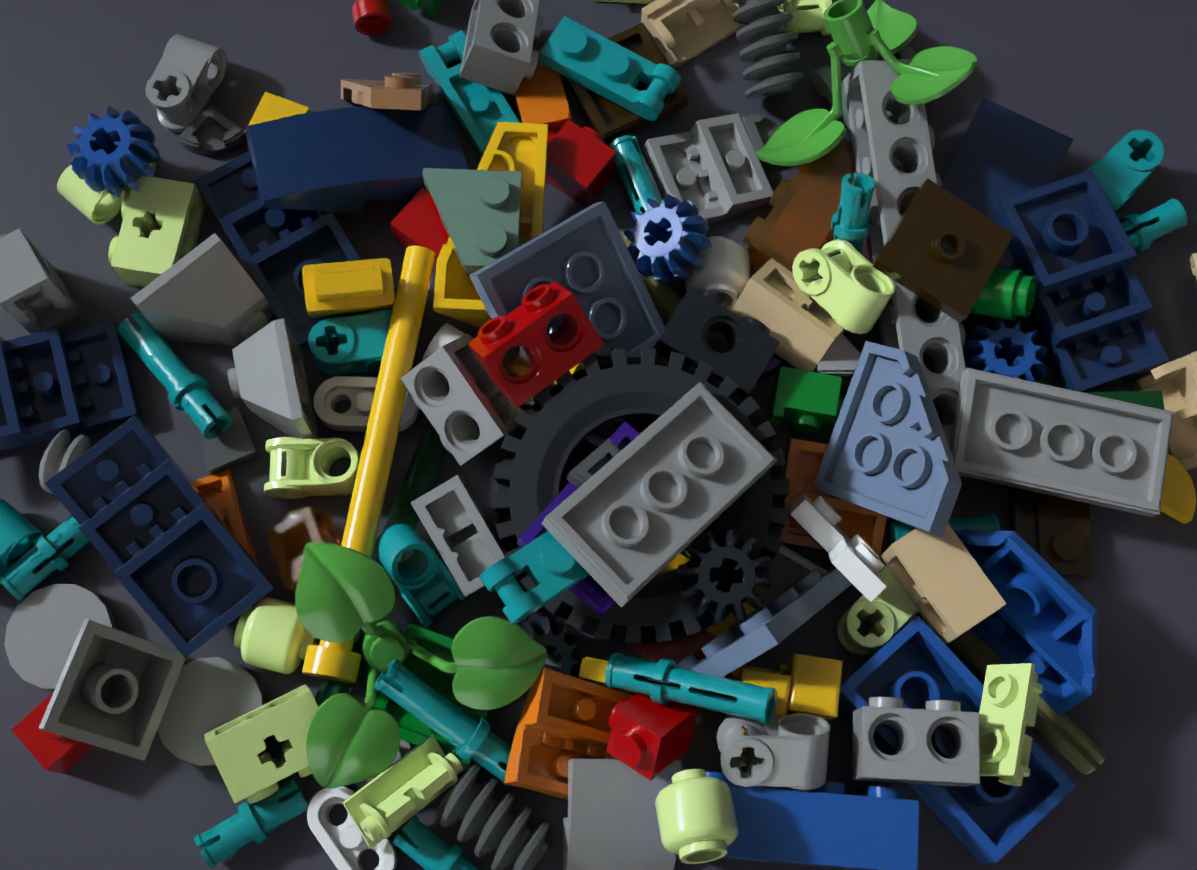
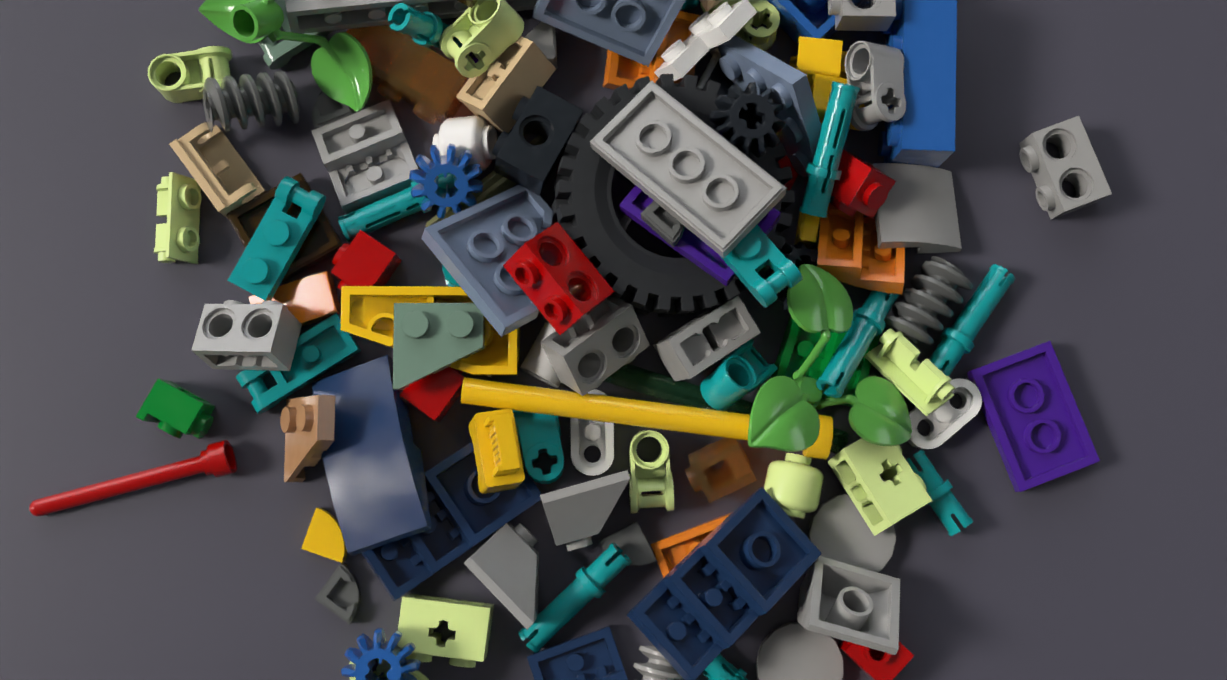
camera: 95 degrees left, 10 degrees up
(185, 81) = (286, 618): light grey piece -> none
(696, 817) = (934, 137): yellowish green head -> none
(805, 400) = (575, 72): green brick -> none

